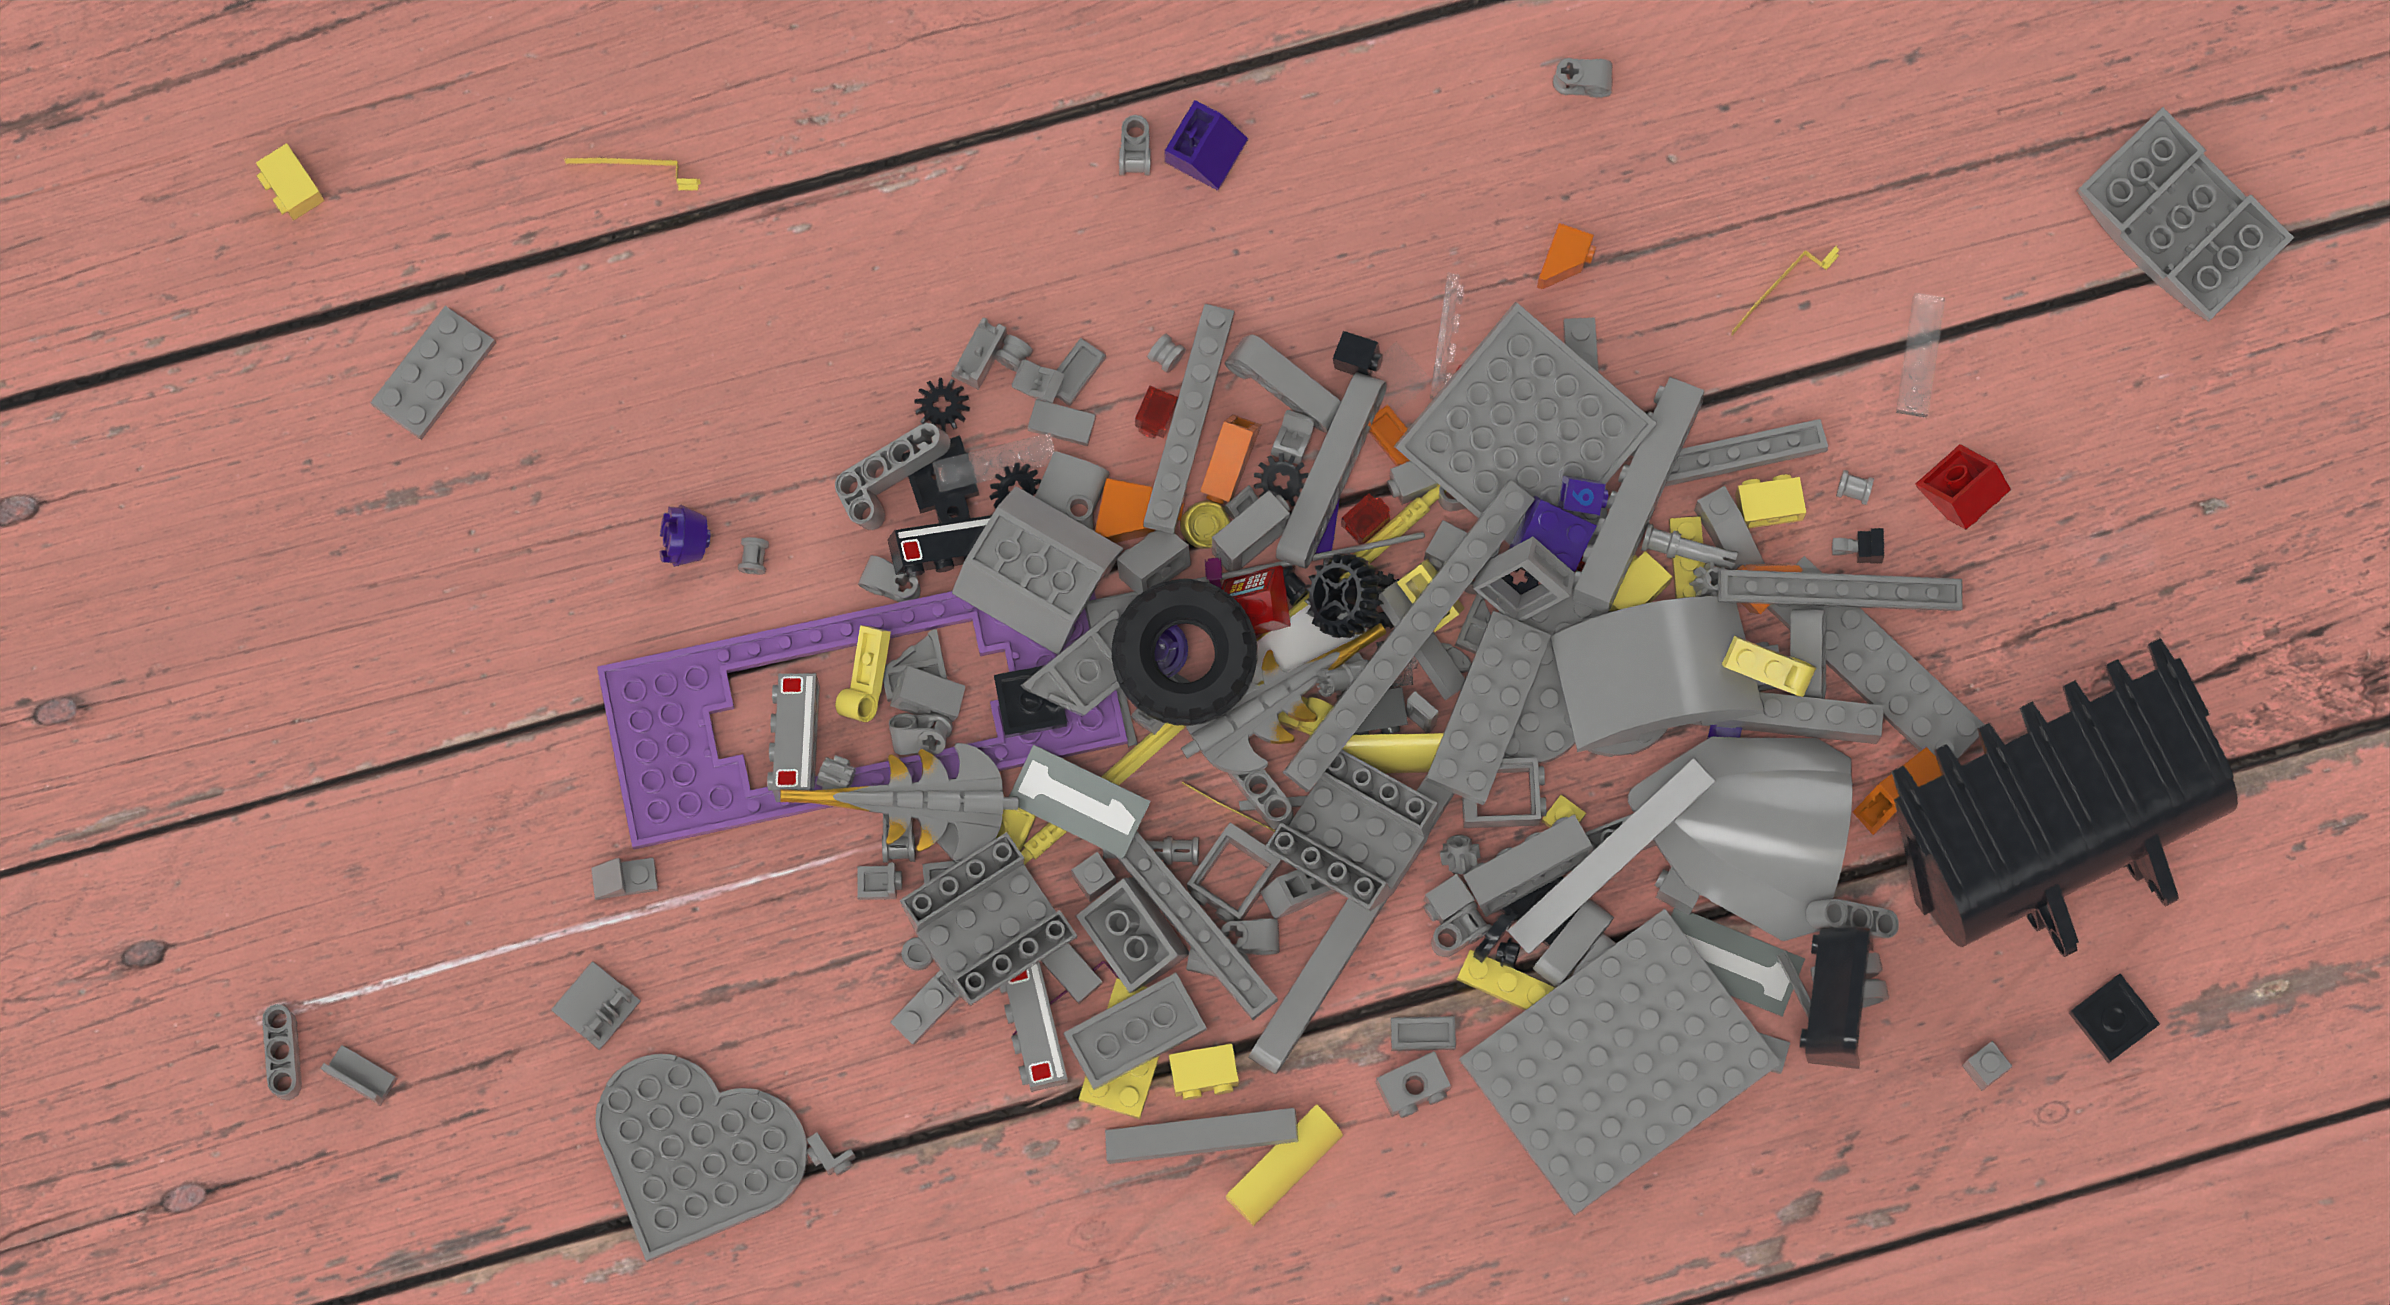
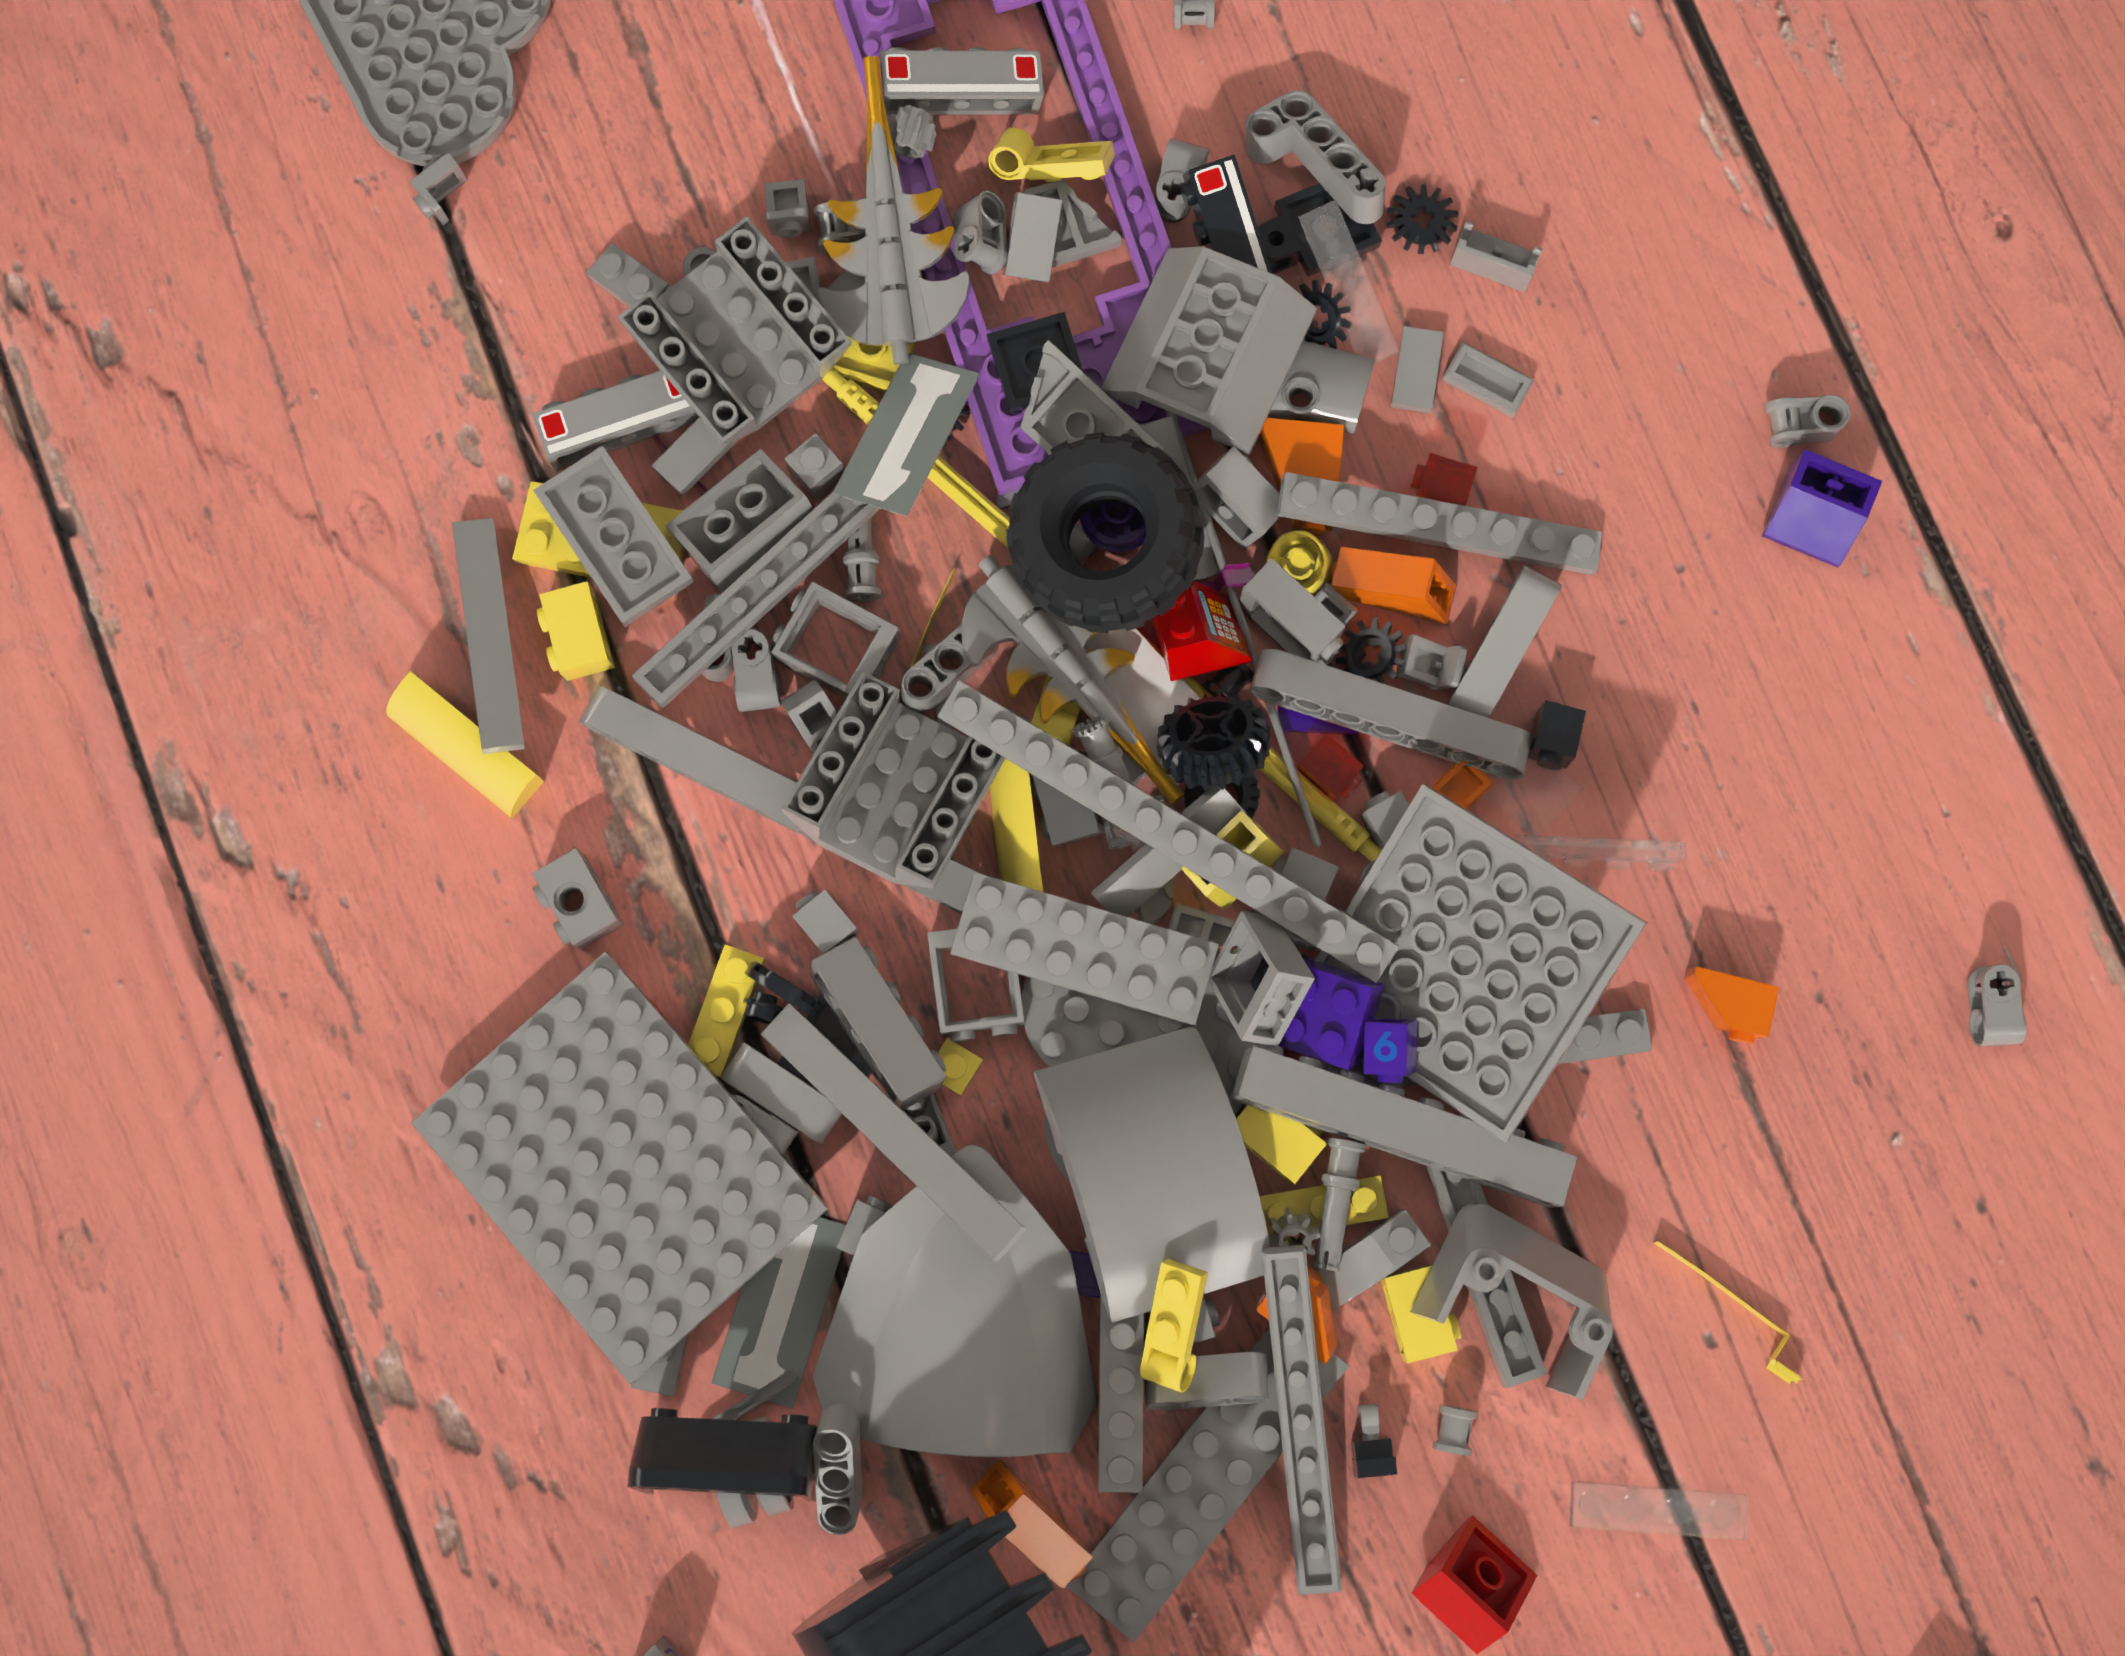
camera: 85 degrees right, 5 degrees up
(1013, 352) = (1501, 296): light grey wheel -> none
(1038, 381) = (1466, 327): light grey bracket -> none
(1166, 353) = (1527, 489): light grey wheel -> none
(1421, 712) = (1070, 861): light grey tile -> none
(1423, 1033) = (650, 908): light grey tile -> none
(1460, 854) = (887, 932): light grey gear -> none
(1465, 928) = (787, 944): light grey piece -> none
(1734, 451) = (1478, 1255): none -> light grey windscreen

